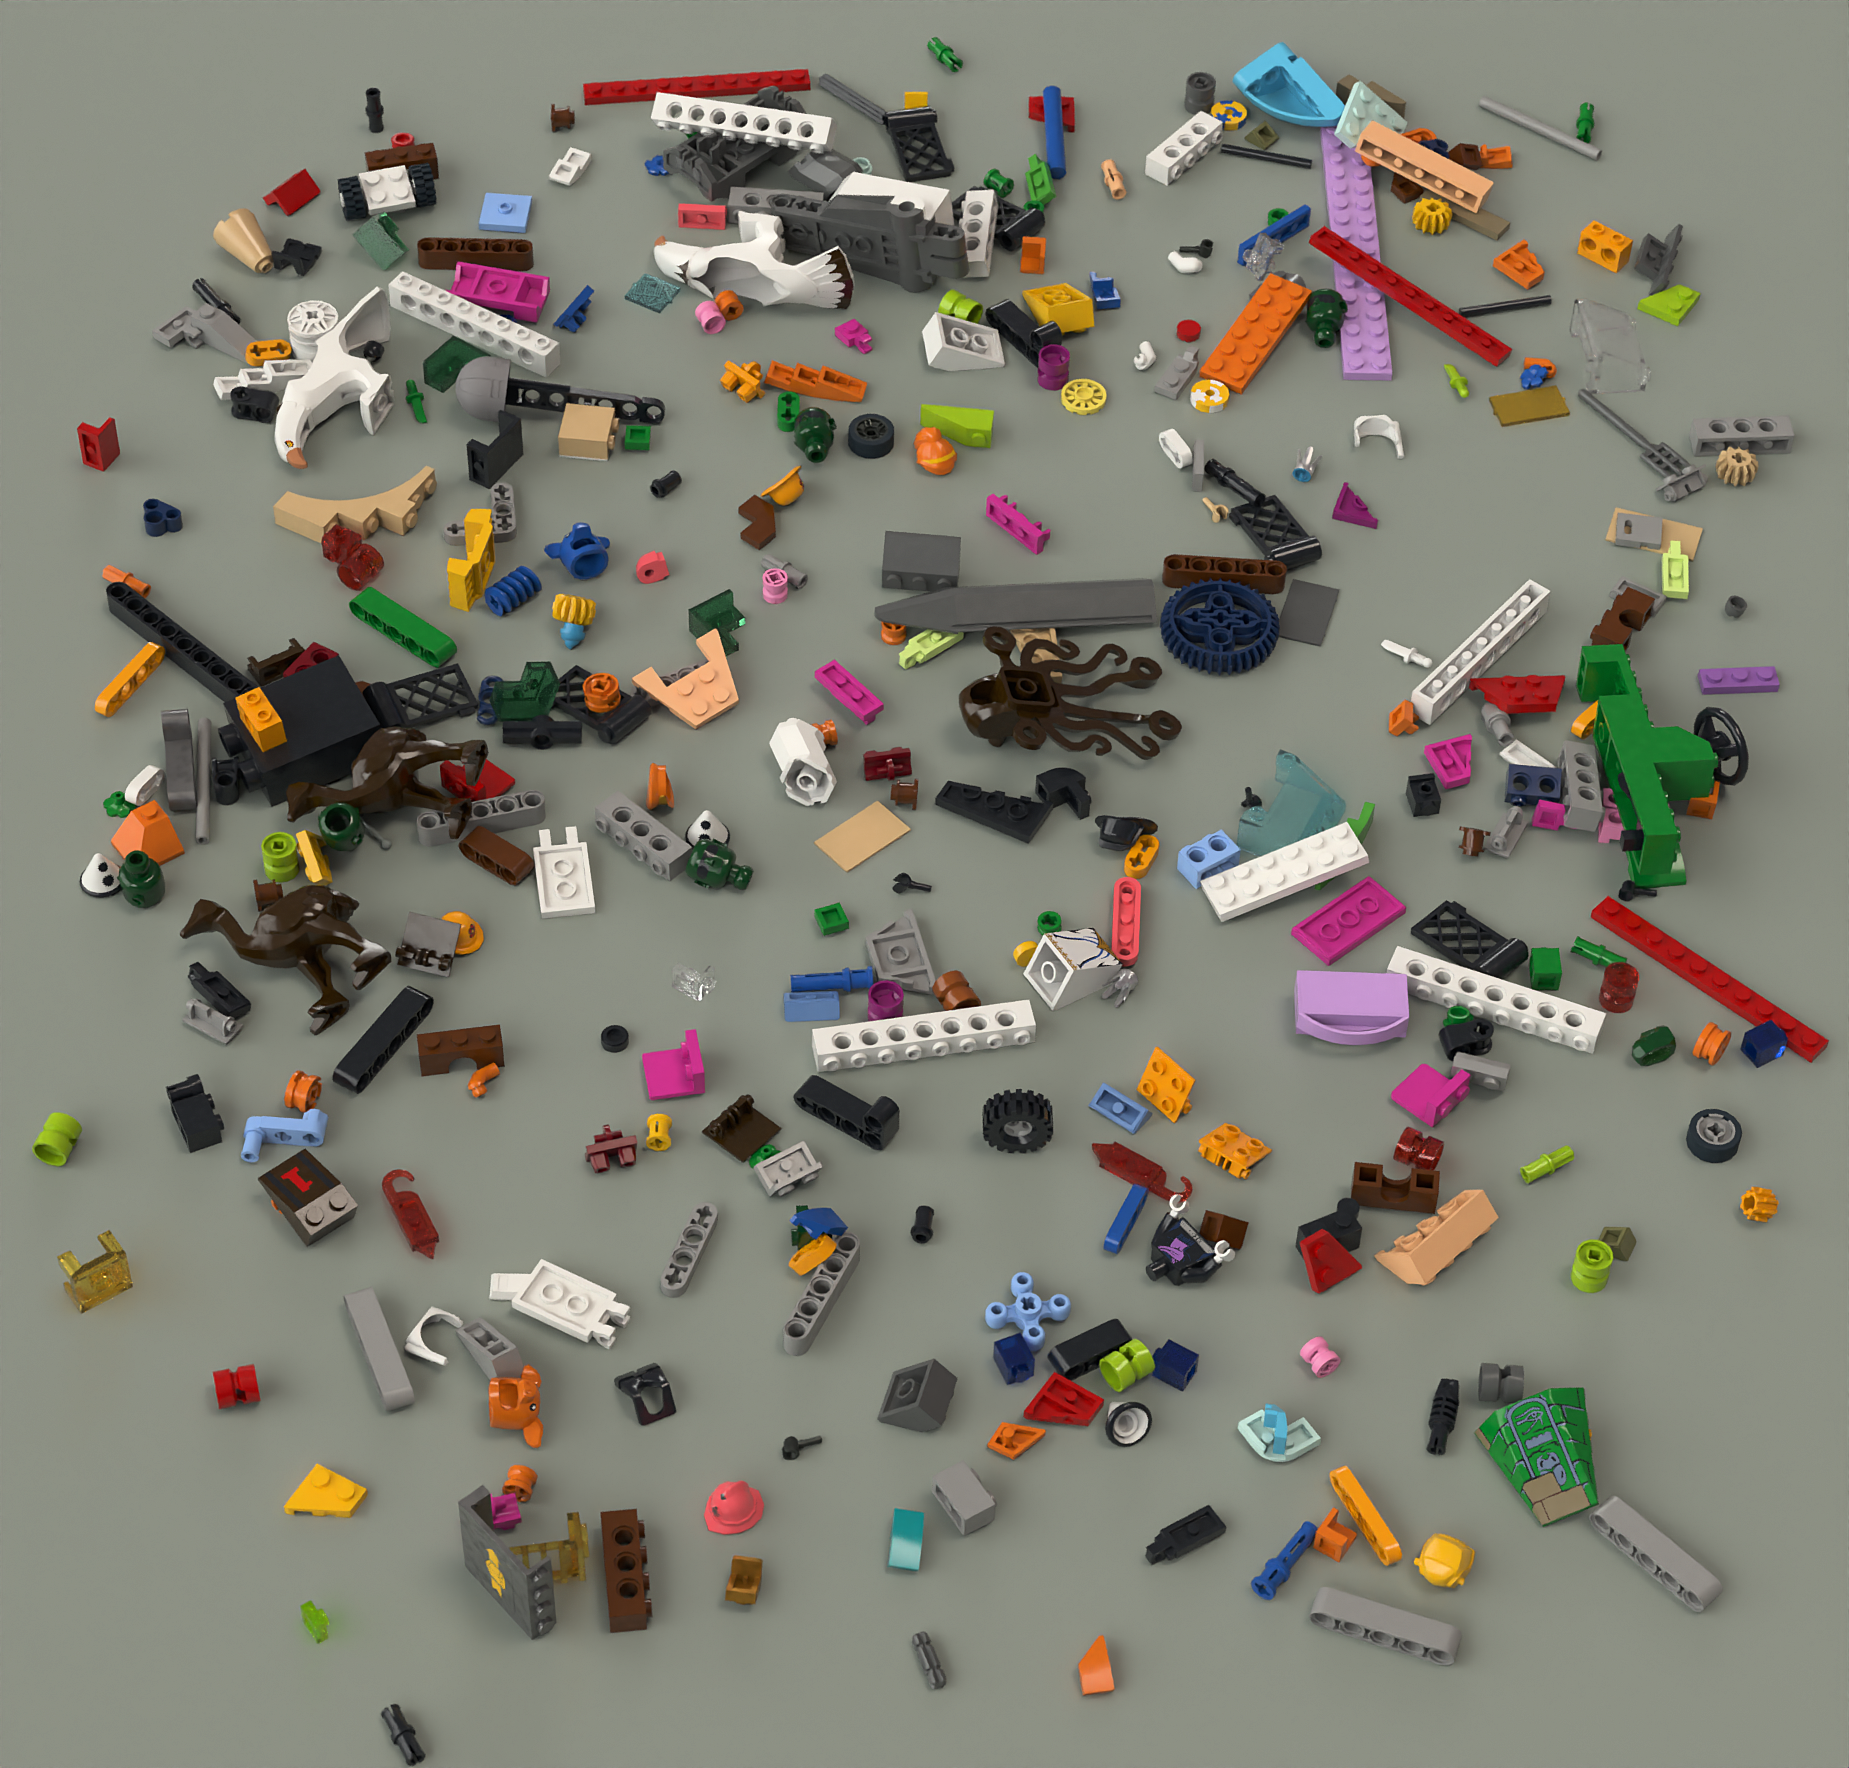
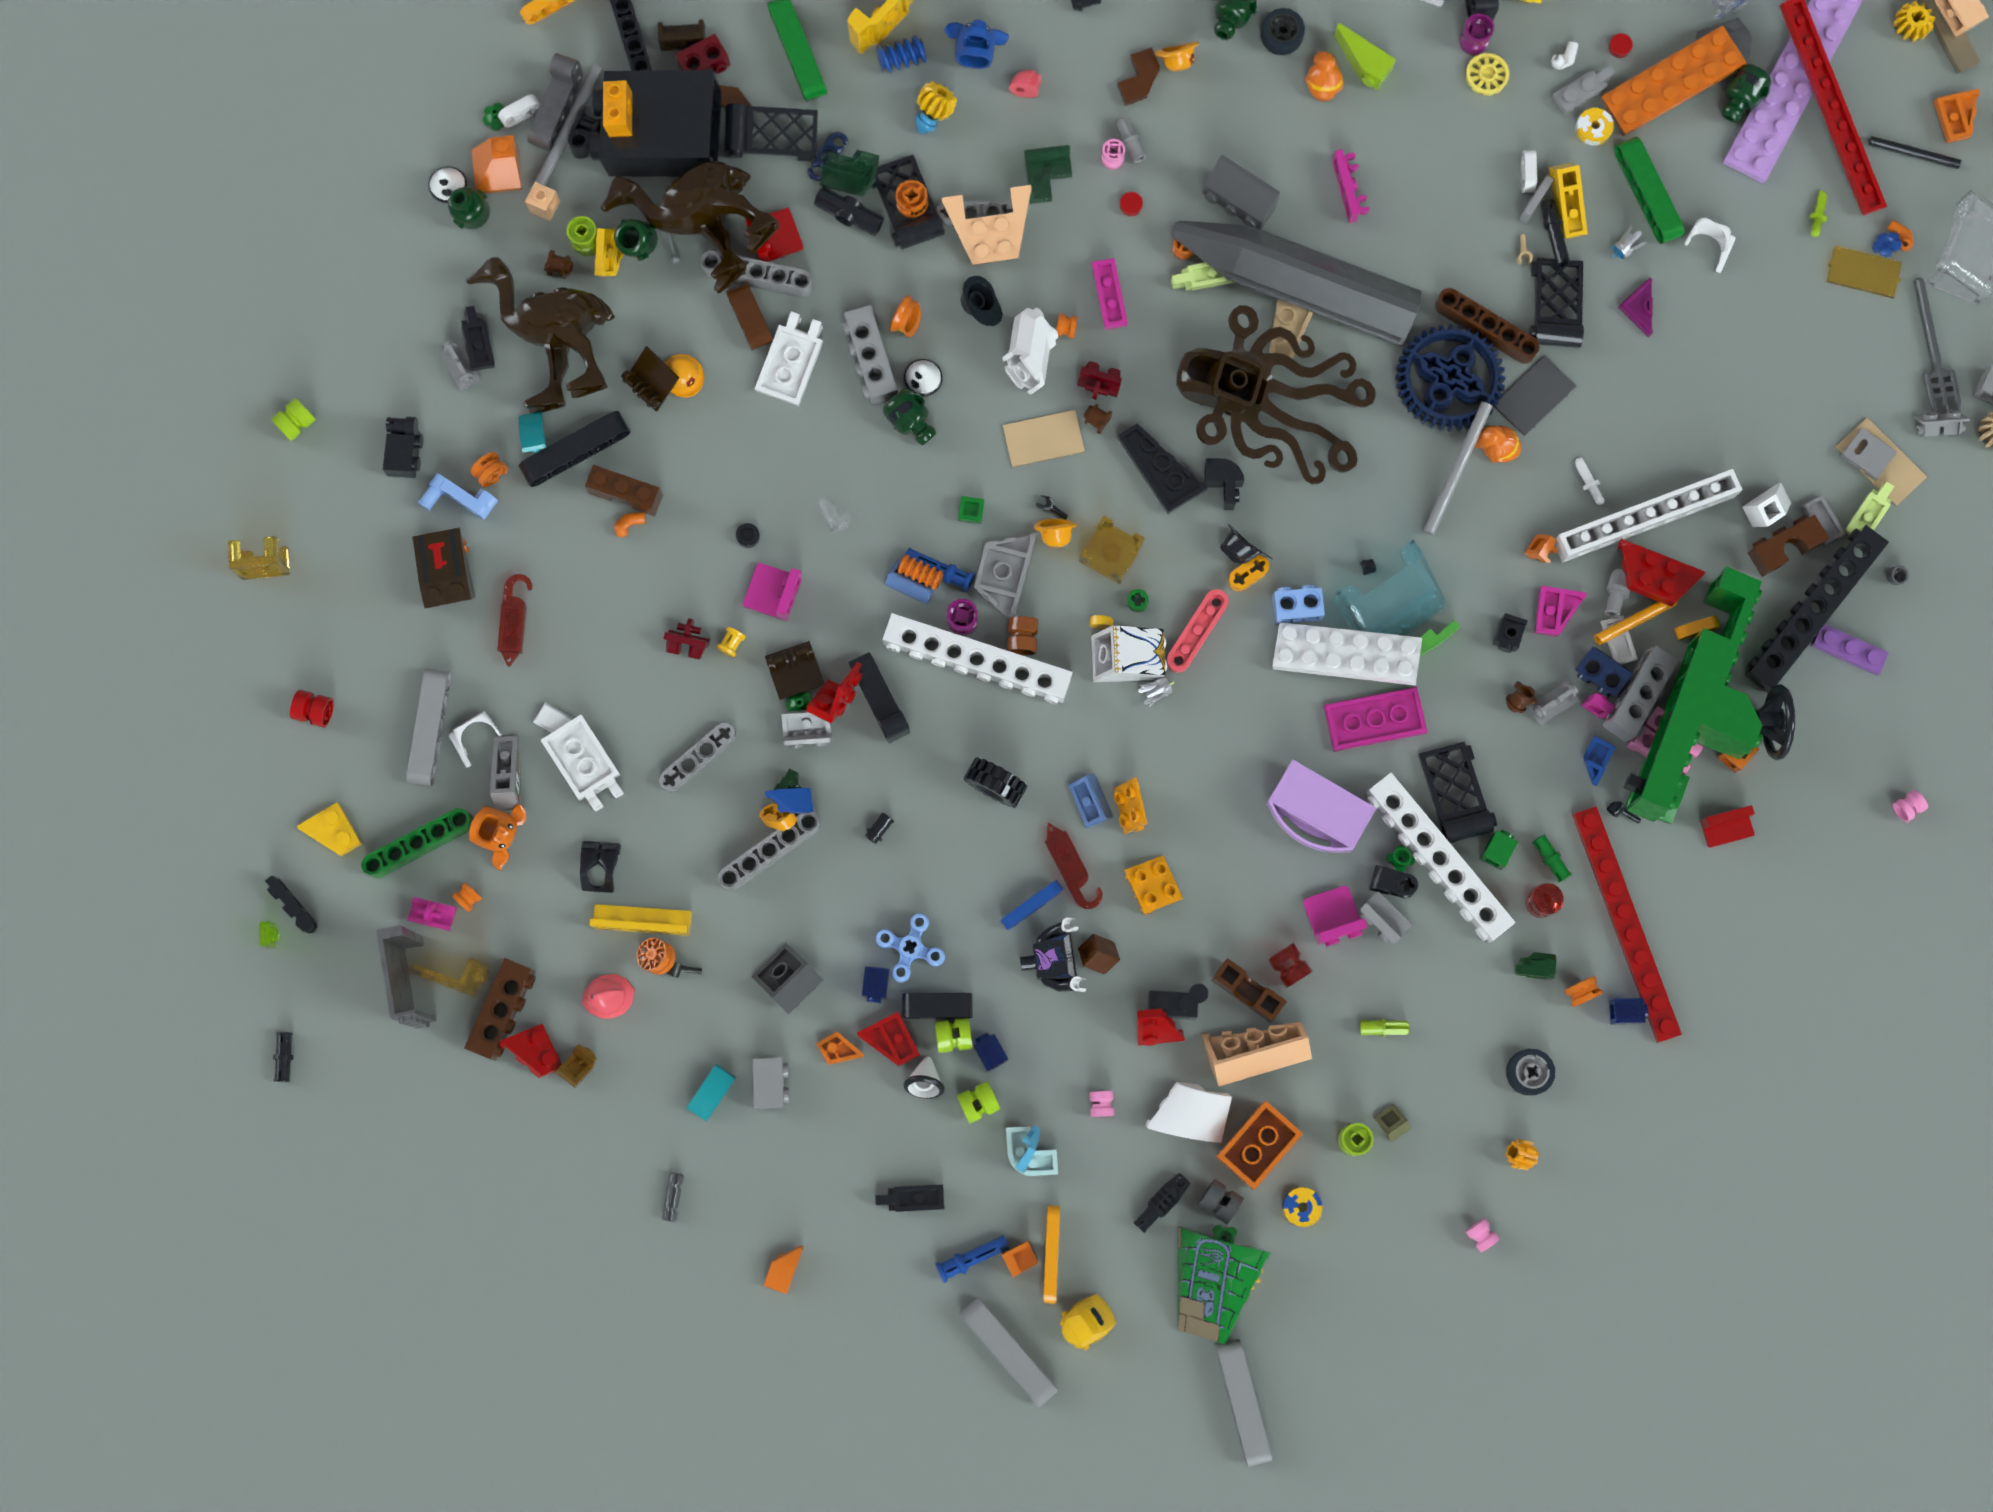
camera: 30 degrees right, 30 degrees up
(217, 847) = (542, 201): none -> light nougat brick
(324, 1580) = (292, 905): none -> black hinge
(331, 1041) = (532, 432): none -> teal slope
(430, 1471) = (405, 843): none -> green beam
(688, 1590) = (534, 1050): none -> red wing
(723, 747) = (980, 301): none -> black piece
(726, 1420) = (641, 920): none -> yellow fence
(764, 1439) = (656, 948): none -> orange wheel
(798, 1131) = (833, 697): none -> red bracket
(817, 985) = (921, 572): none -> orange piece
(818, 619) = (1131, 204): none -> red tile
(931, 898) = (1055, 531): none -> light orange hat
(995, 894) = (1111, 551): none -> clear yellow panel
(1194, 1412) = (986, 1098): none -> lime wheel
(1225, 448) = (1569, 198): none -> yellow slope
(1279, 686) = (1457, 468): none -> light grey piece
(1294, 420) = (1649, 190): none -> green beam
(1299, 656) = (1499, 443): none -> orange hair
(1417, 1320) = (1192, 1113): none -> white slope
(1502, 1314) = (1259, 1145): none -> orange brick
(1529, 737) = (1631, 622): none -> light orange piece
(1578, 859) = (1597, 757): none -> blue slope
(1580, 603) = (1768, 506): none -> white slope
(1583, 1366) = (1313, 1204): none -> yellow piece
(1684, 650) = (1871, 546): none -> black brick
(1738, 858) = (1728, 826): none -> red panel
(1774, 1291) = (1481, 1233): none -> bright pink wheel

